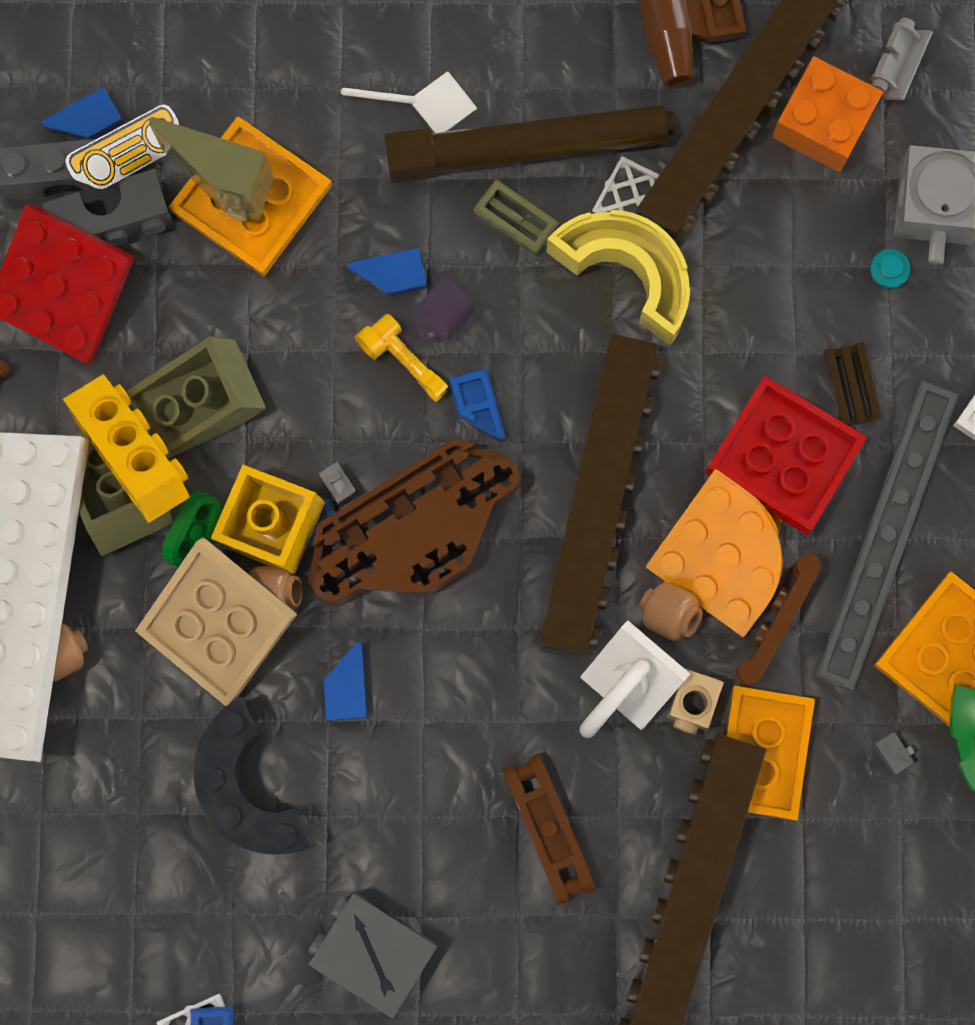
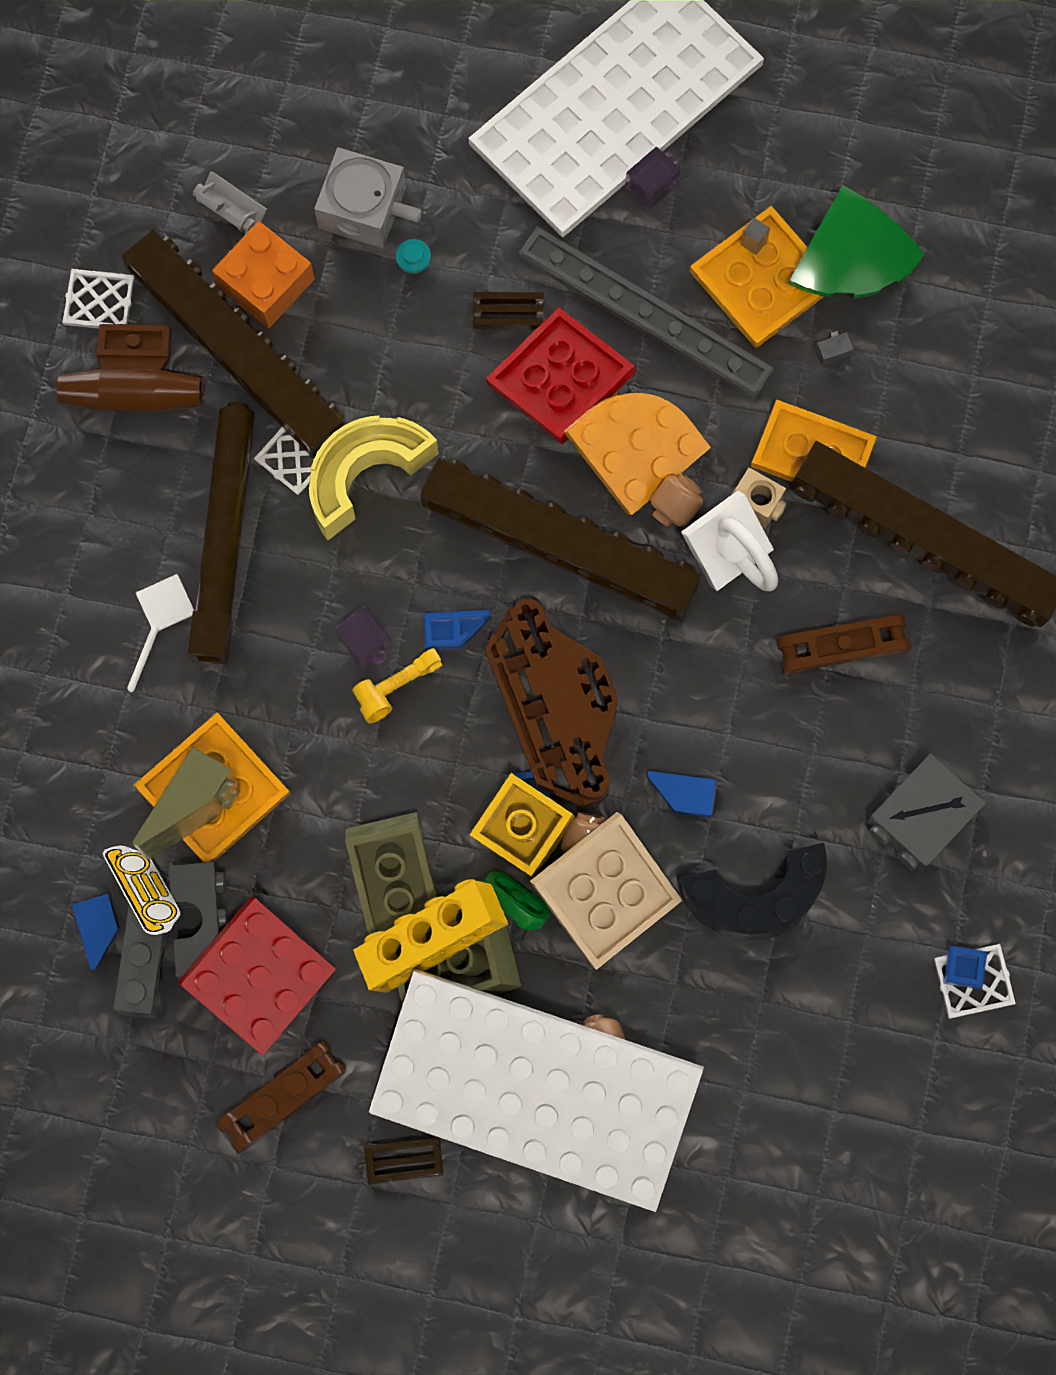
camera: 80 degrees left, 5 degrees down
(338, 484) = (499, 764): flat silver piece -> none
(392, 272) = (314, 677): blue tile -> none
(508, 230) = (295, 572): olive tile -> none
(787, 605) = (714, 422): reddish brown plate -> none

